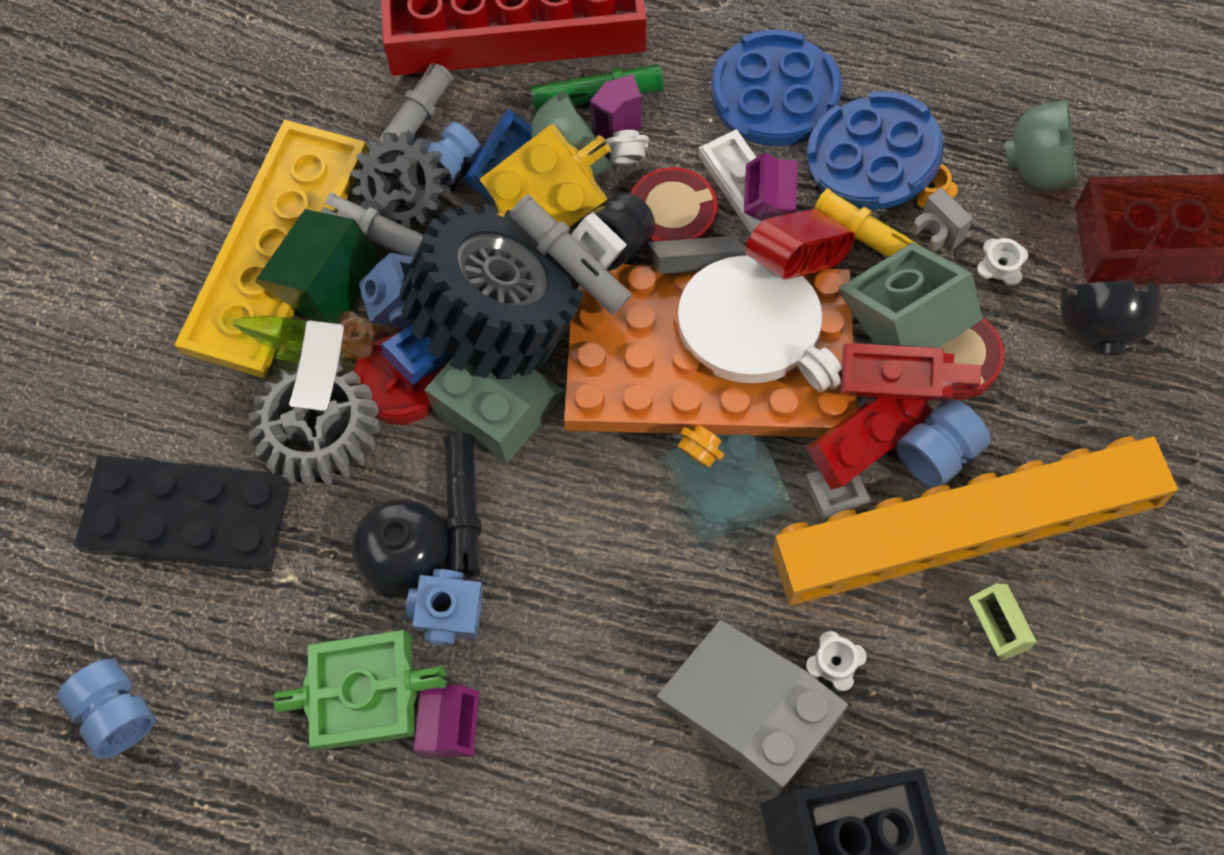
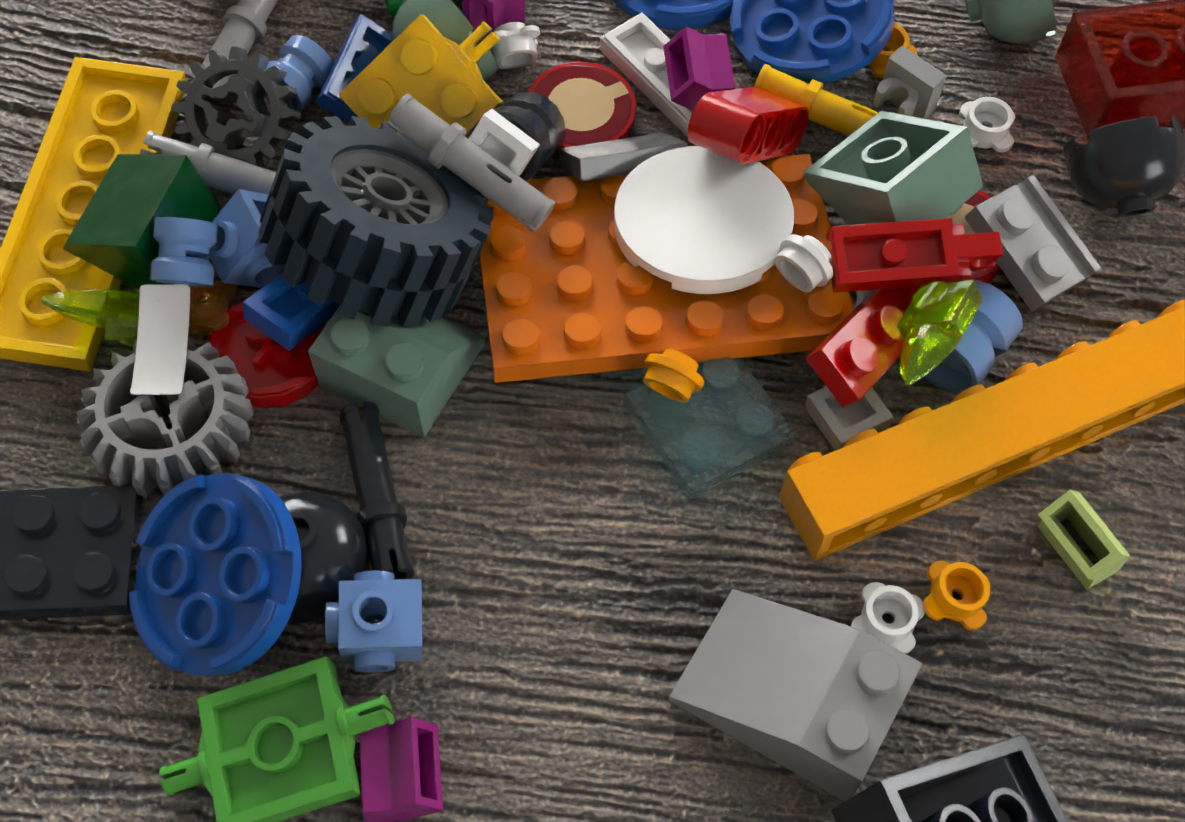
camera: 15 degrees left, 5 degrees down
(332, 554) = (215, 574): none -> blue tile
(342, 298) = (183, 251): none -> medium blue wheel
(903, 640) = (968, 583): none -> light orange plate
(914, 435) = (935, 325): none -> clear neon green plate
(1016, 369) = (1038, 244): none -> light grey plate

